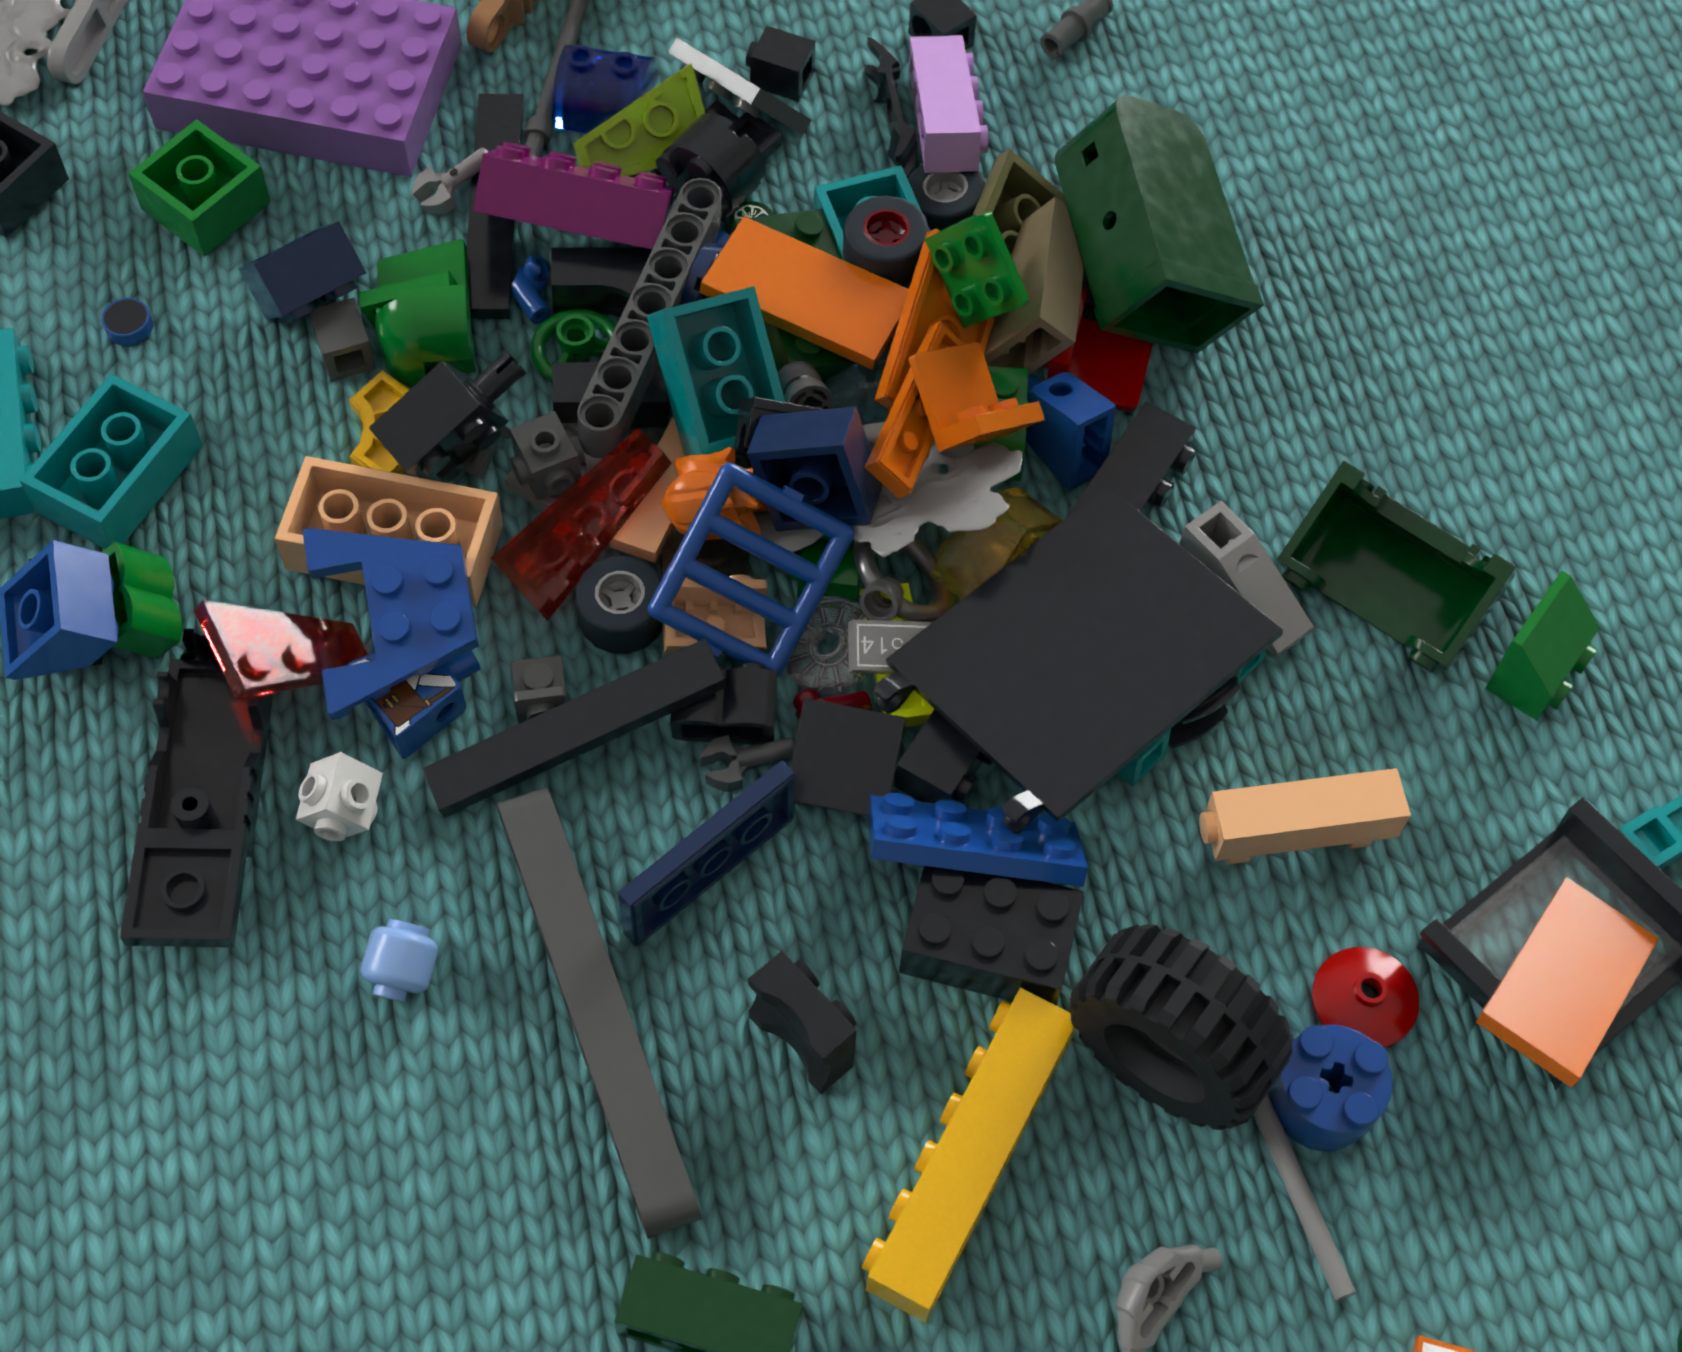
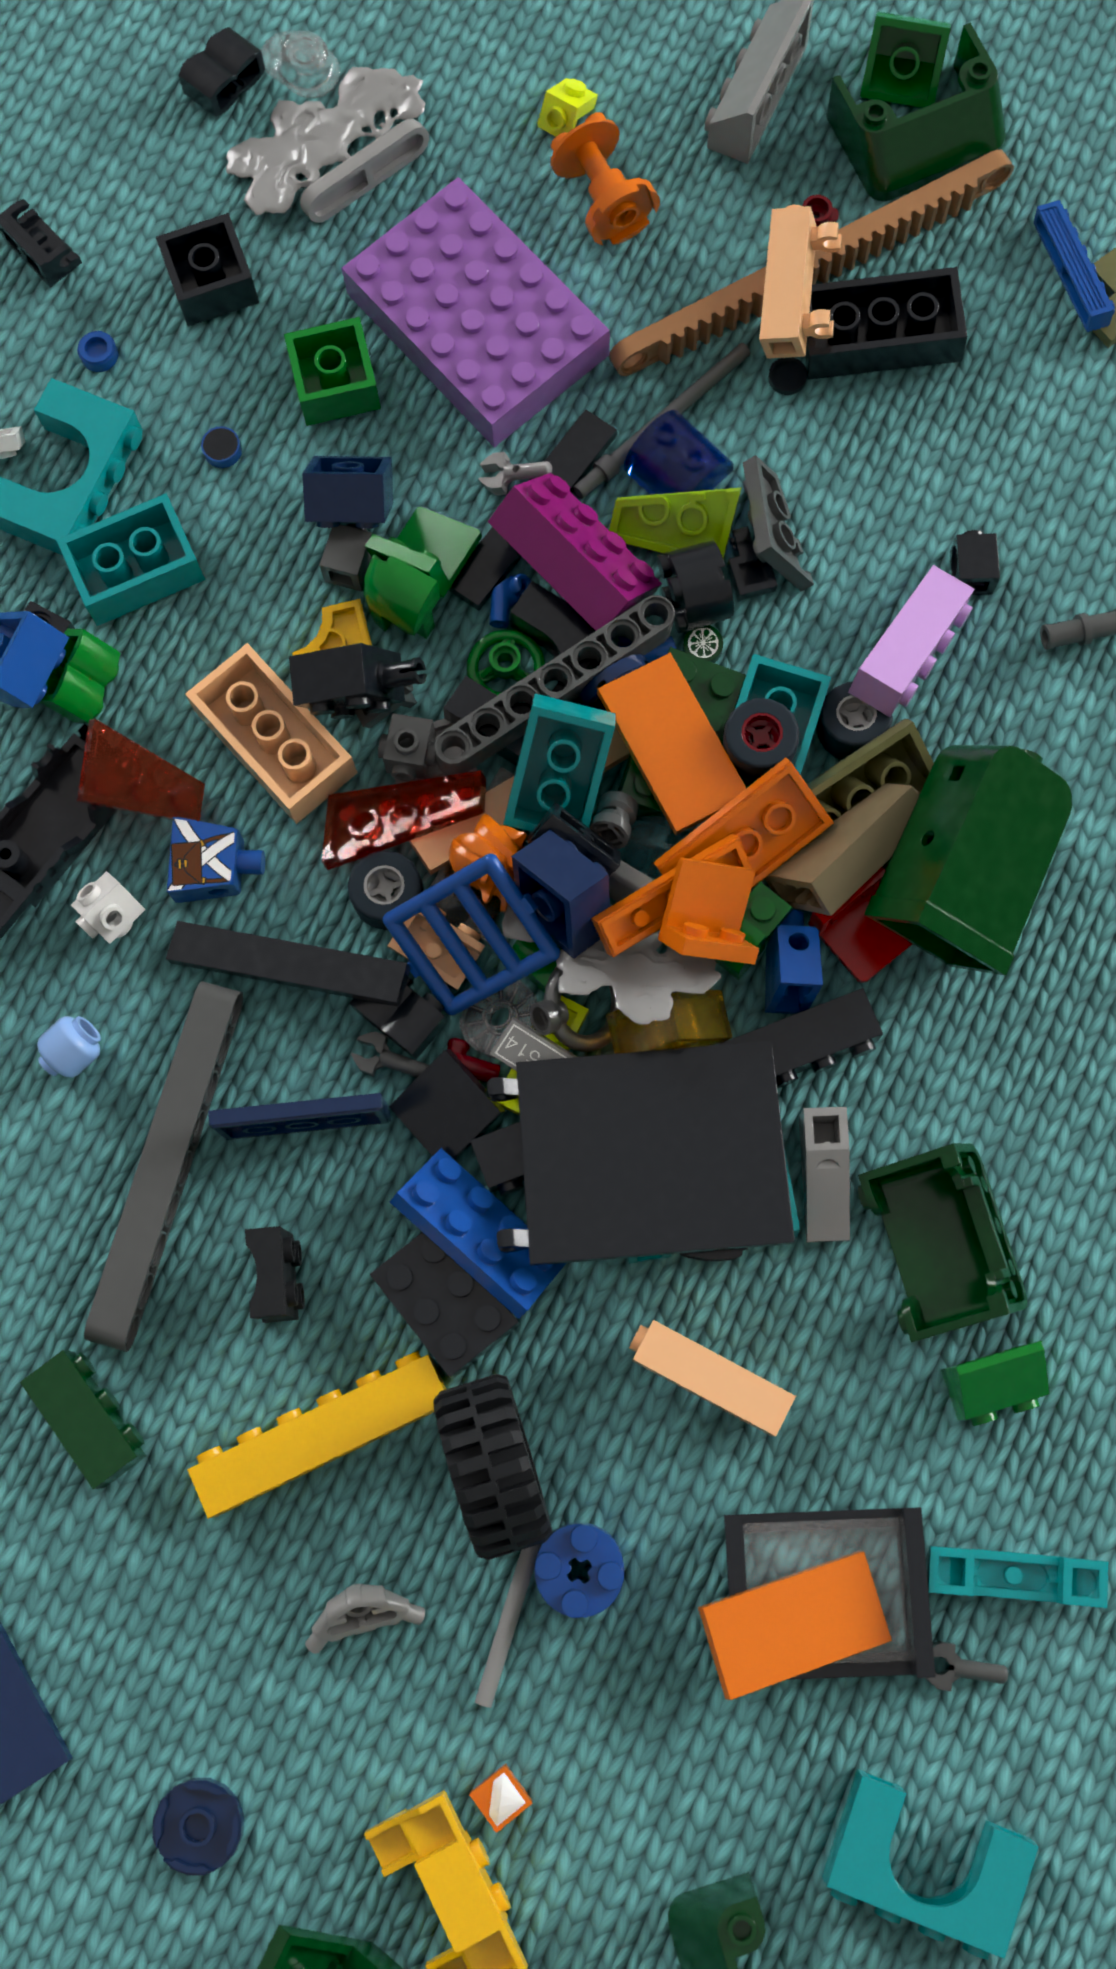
camera: 45 degrees right, 15 degrees up
(415, 608) = (236, 809): blue wing -> none
(538, 686) = (292, 915): dark grey bracket -> none
(781, 63) = (824, 522): black brick -> none
(902, 138) = (893, 587): black piece -> none
(977, 269) = (794, 812): green bracket -> none
(1340, 1000) = (640, 1519): red dish -> none

